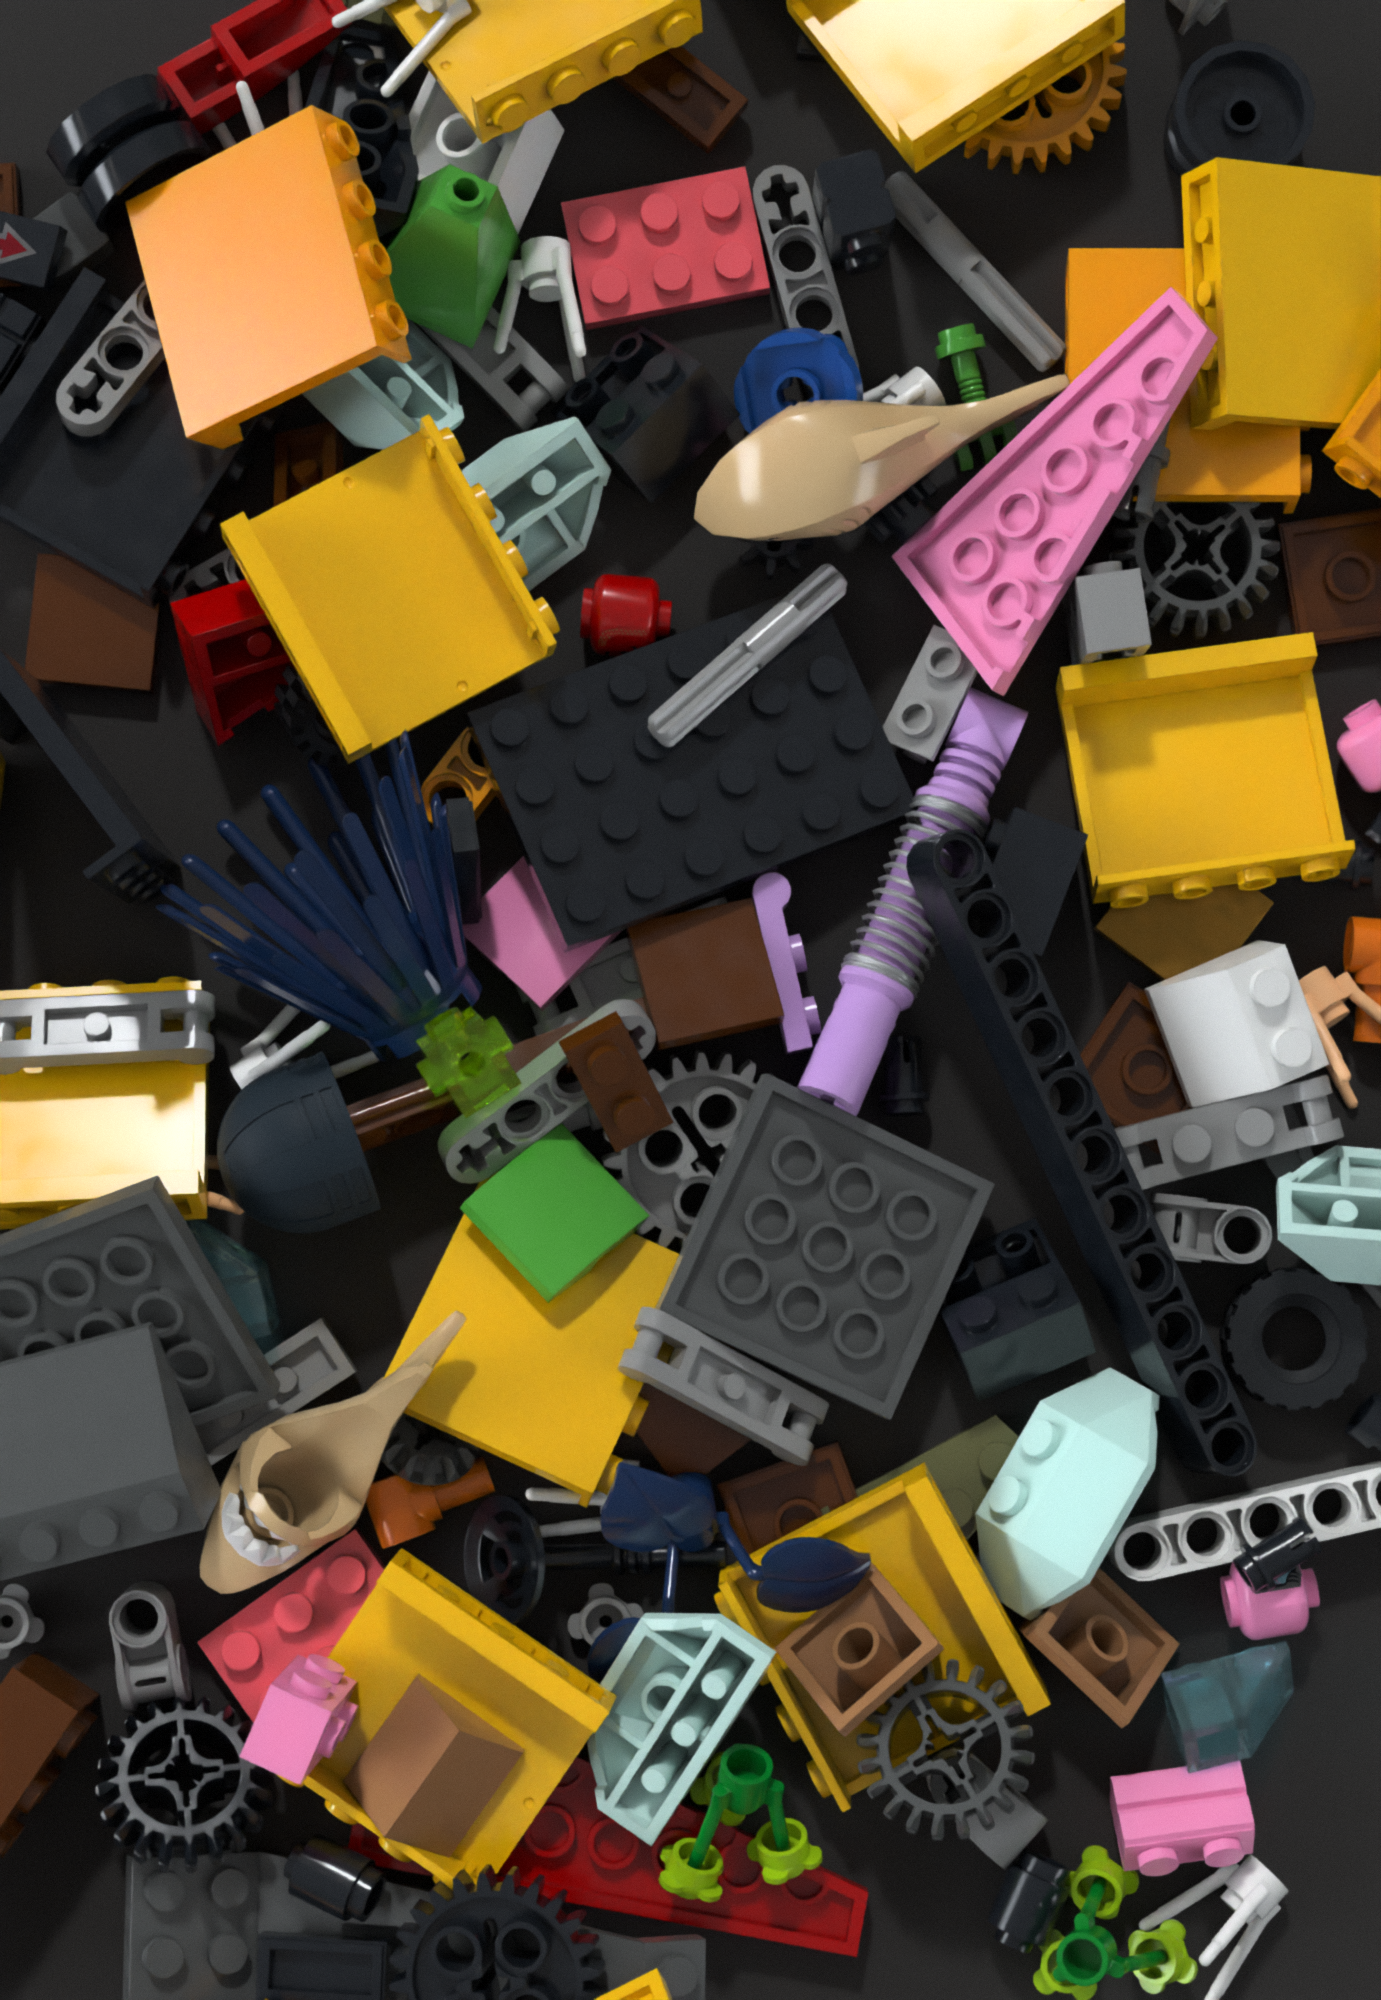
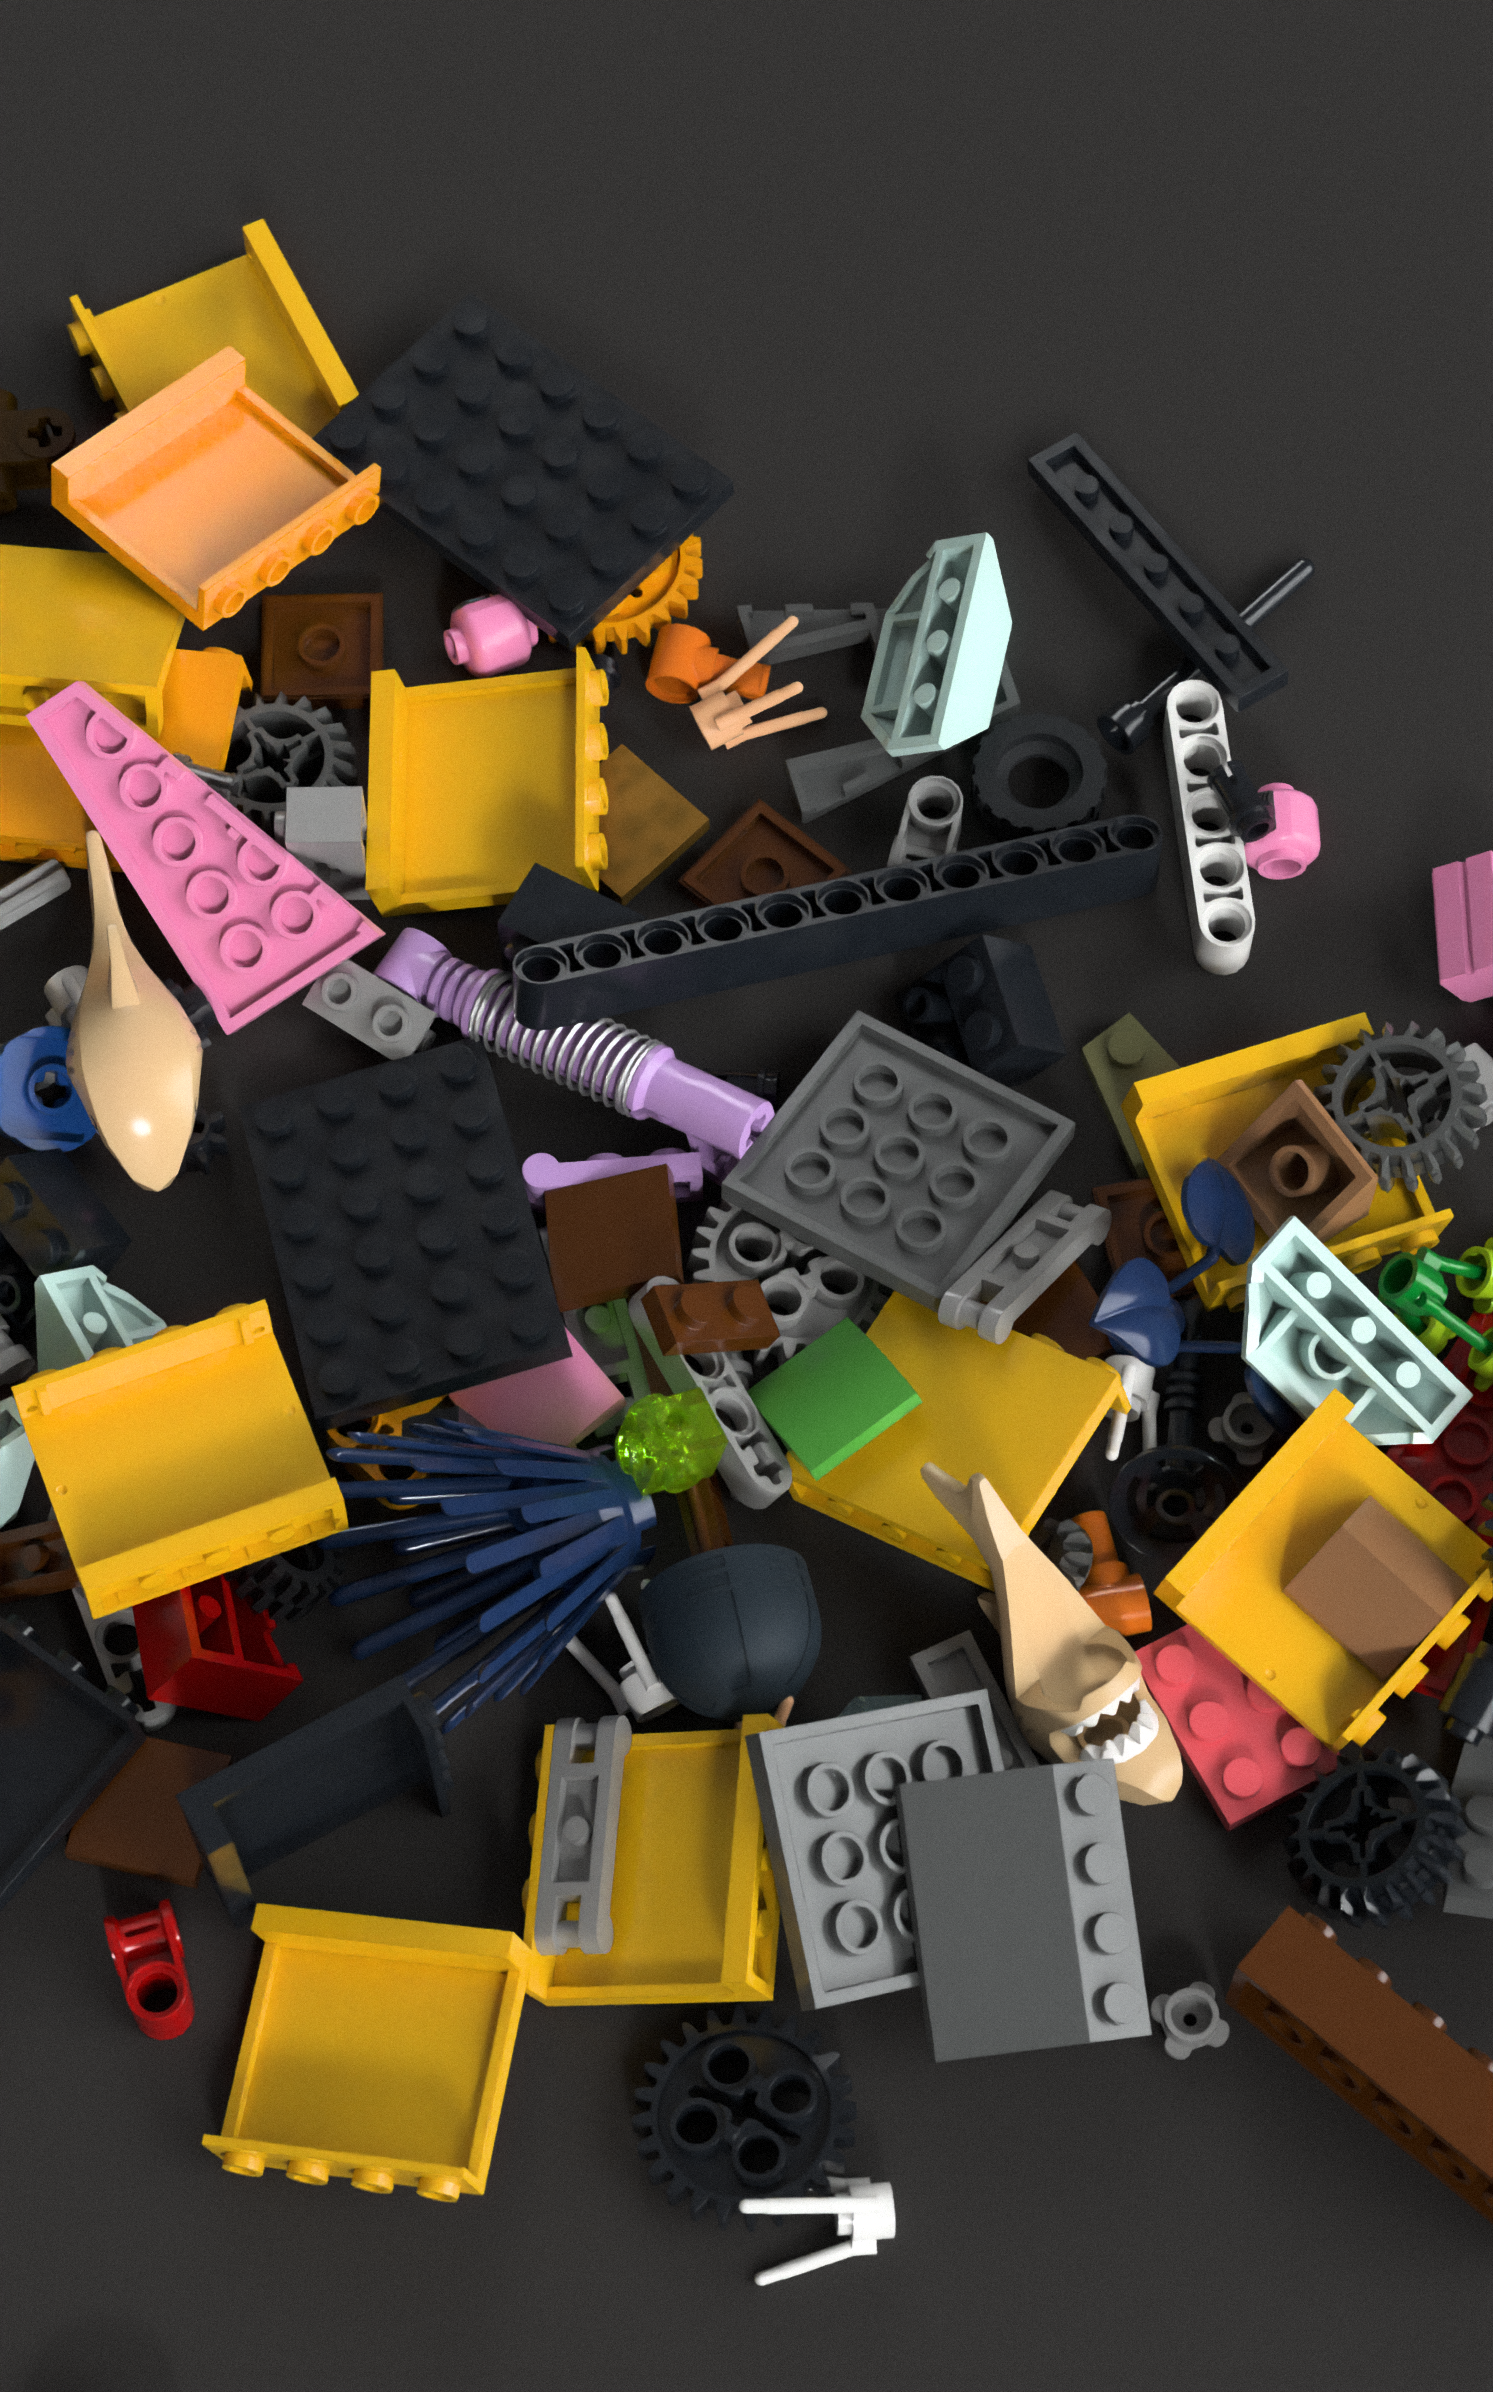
camera: 80 degrees left, 20 degrees down
(153, 1660) = (1244, 1870): light grey piece -> none
(301, 1718) = (1314, 1686): bright pink brick -> none
(624, 614) = (238, 1274): red head -> none
(747, 655) = (304, 1157): light grey axle -> none
(960, 346) = (31, 949): bright green hinge -> none
(1067, 1490) = (1162, 975): light aqua wedge -> none
(1104, 1645) = (1313, 980): medium nougat slope -> none
(1227, 1704) = (1379, 880): clear light blue slope -> none
(1231, 1131) = (834, 792): light grey plate -> none
(1237, 1024) = (734, 779): white slope -> none

